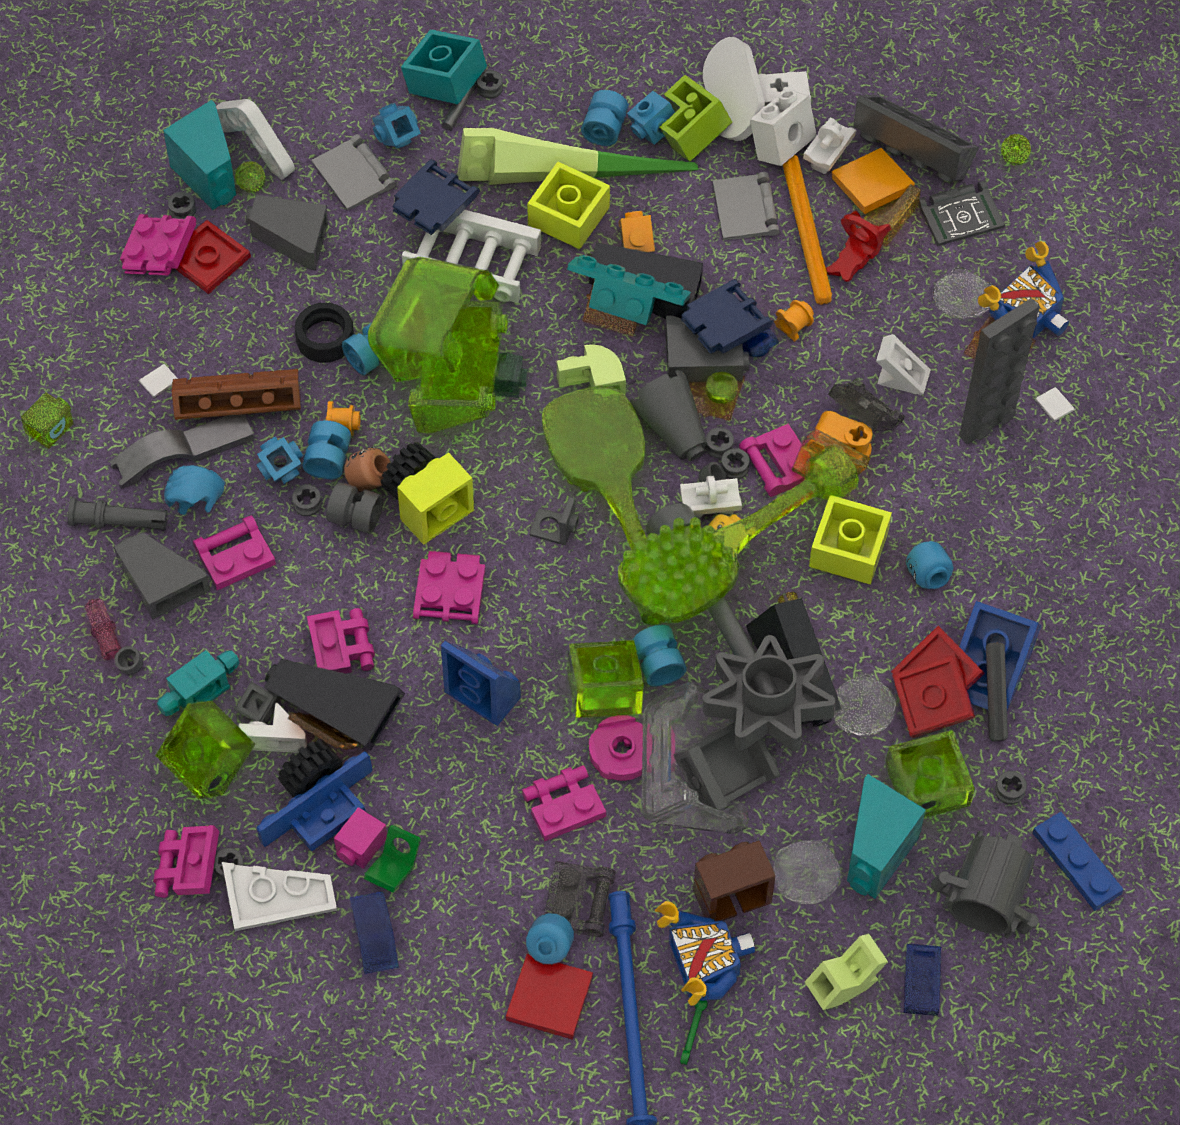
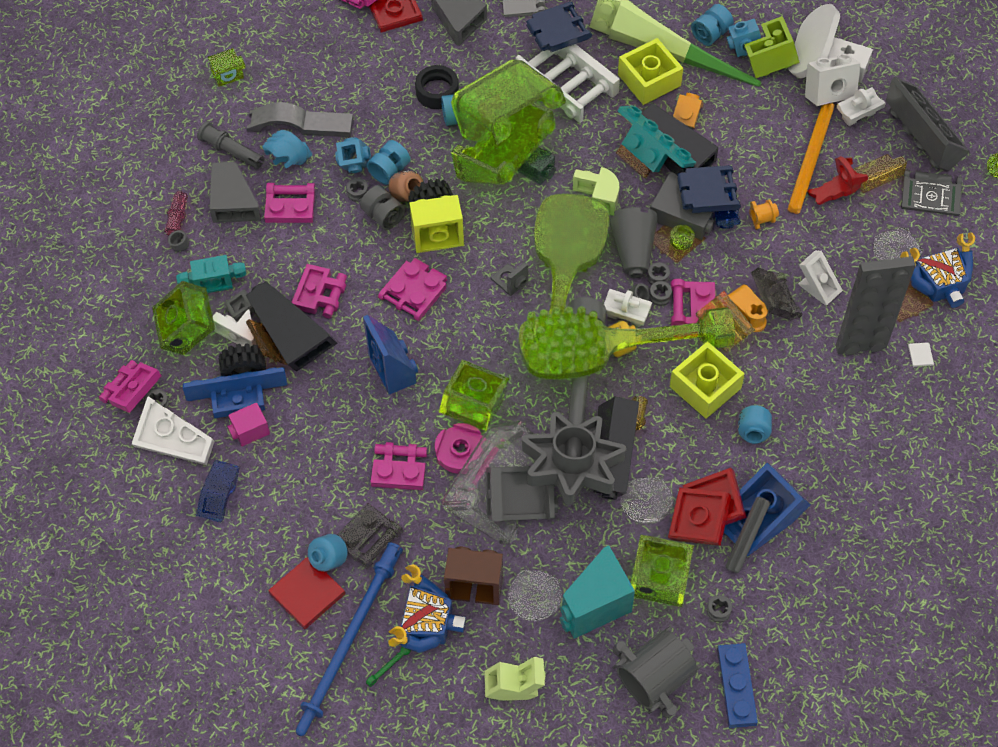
camera: 30 degrees right, 0 degrees up
(158, 380) = (314, 73): white piece -> none
(236, 394) = (353, 101): dark orange brick -> none
(344, 416) = (414, 147): light orange brick -> none
(392, 865) = (259, 453): green bracket -> none
(660, 655) = (523, 397): dark azure wheel -> none
(745, 207) = (777, 124): light grey piece -> none
(872, 180) = (878, 143): light orange tile -> none
(922, 979) = (569, 712): clear blue plate -> none

